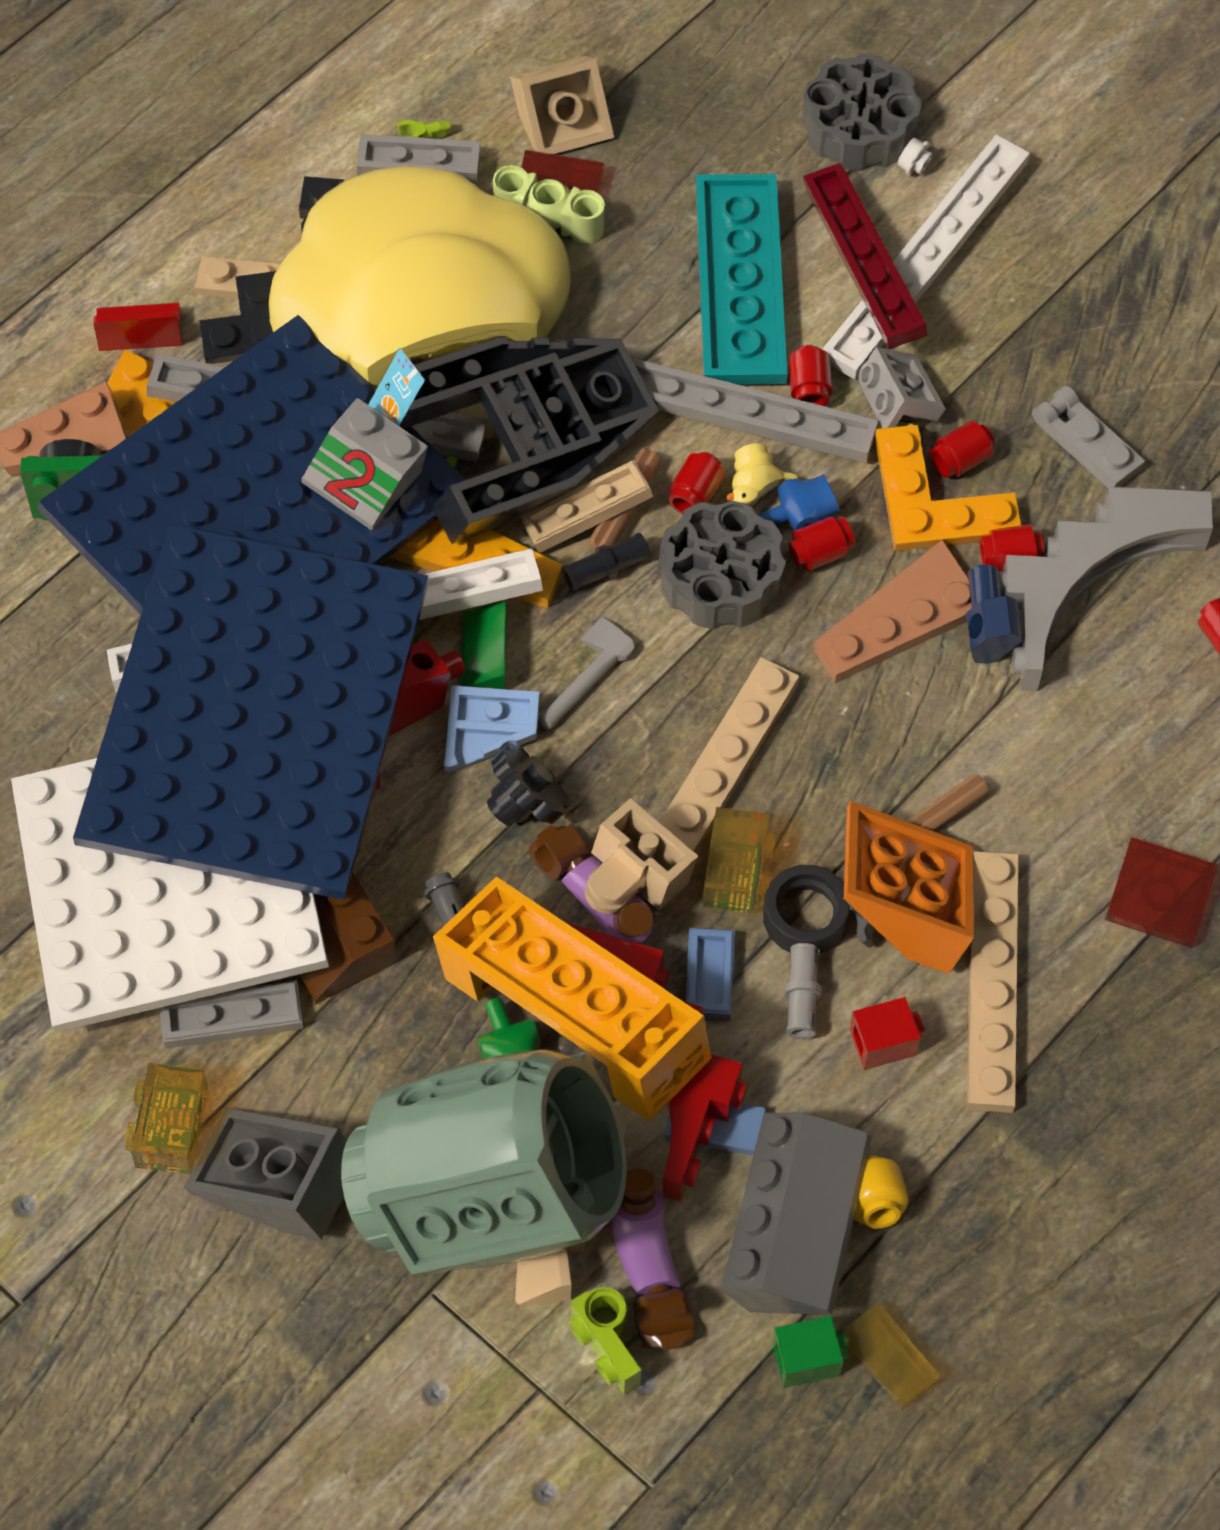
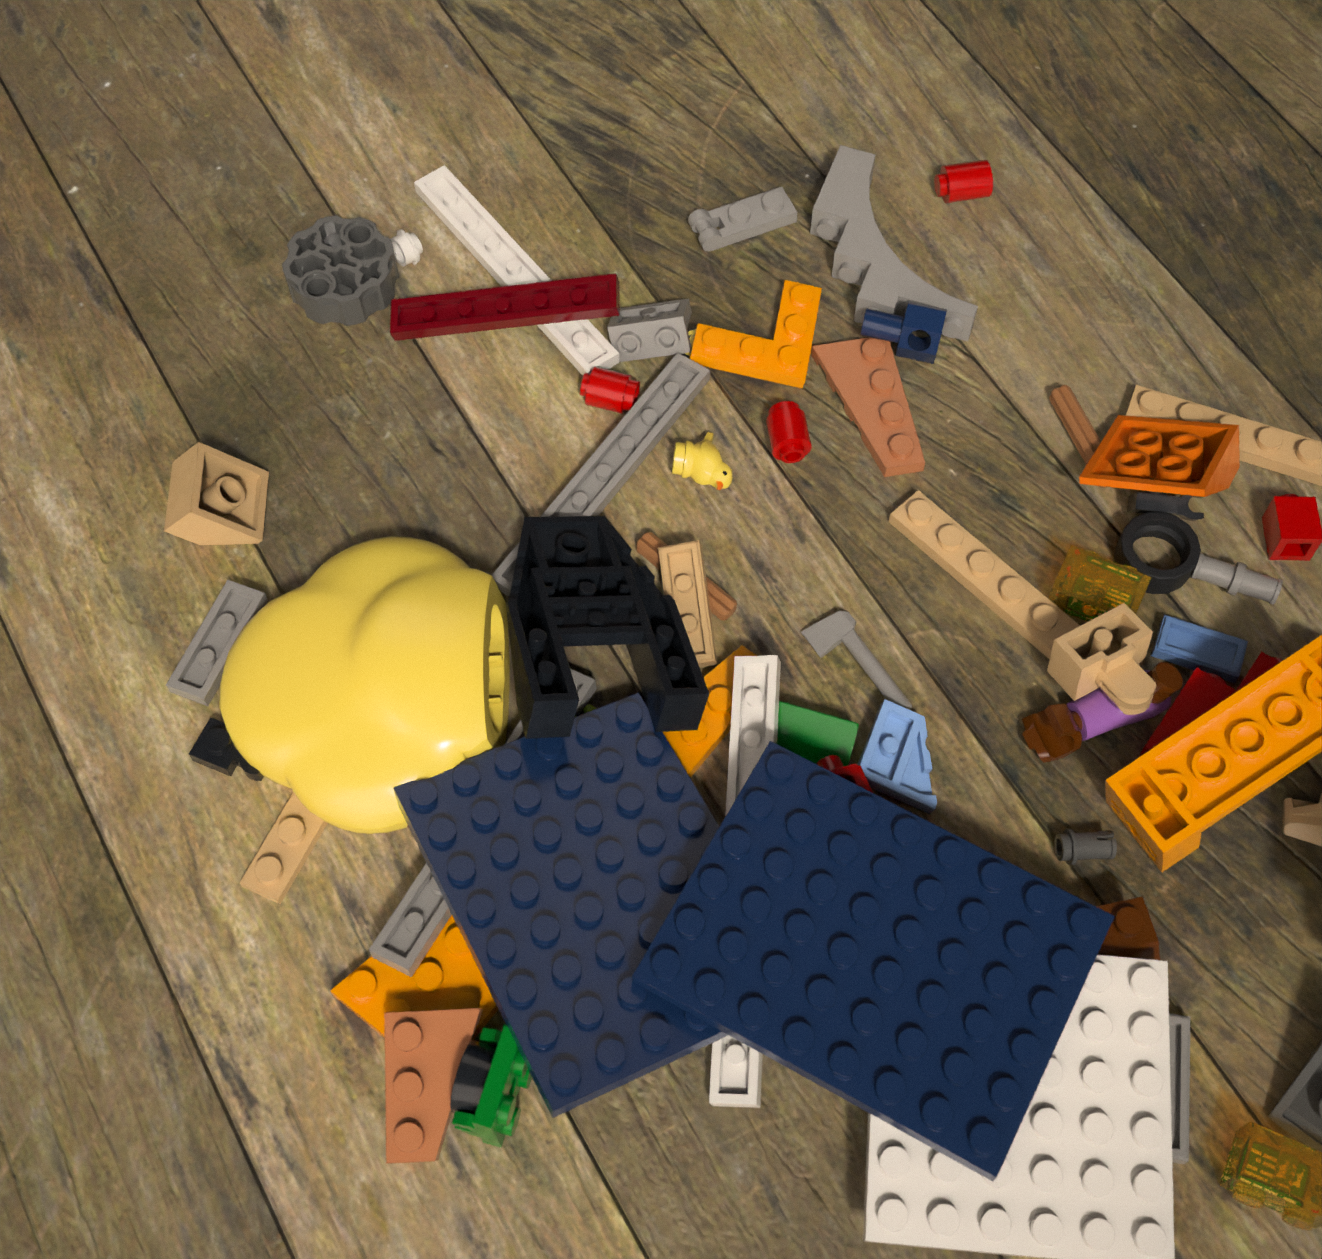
camera: 70 degrees left, 0 degrees up
(138, 326) = (303, 969): red panel -> none
(232, 336) = (361, 857): black plate -> none
(365, 464) = (608, 768): light grey slope -> none
(397, 389) = (555, 710): medium azure sticker -> none
(420, 130) = (182, 631): lime piece -> none
(506, 1036) = (1252, 832): green piece -> none
(524, 788) = (990, 740): black plant -> none
(567, 170) = (293, 527): clear red tile -> none
(575, 212) = (338, 527): yellowish green piece -> none
(606, 561) = (750, 608): black pin -> none
(696, 481) = (691, 510): red brick -> none
(721, 564) = (764, 521): dark grey connector -> none
(740, 278) = (479, 413): teal plate -> none
(803, 502) = (741, 433): blue piece -> none
(962, 449) = (727, 302): red brick -> none
(1006, 541) = (837, 300): red brick -> none
(1161, 892) = (1188, 302): clear red tile -> none

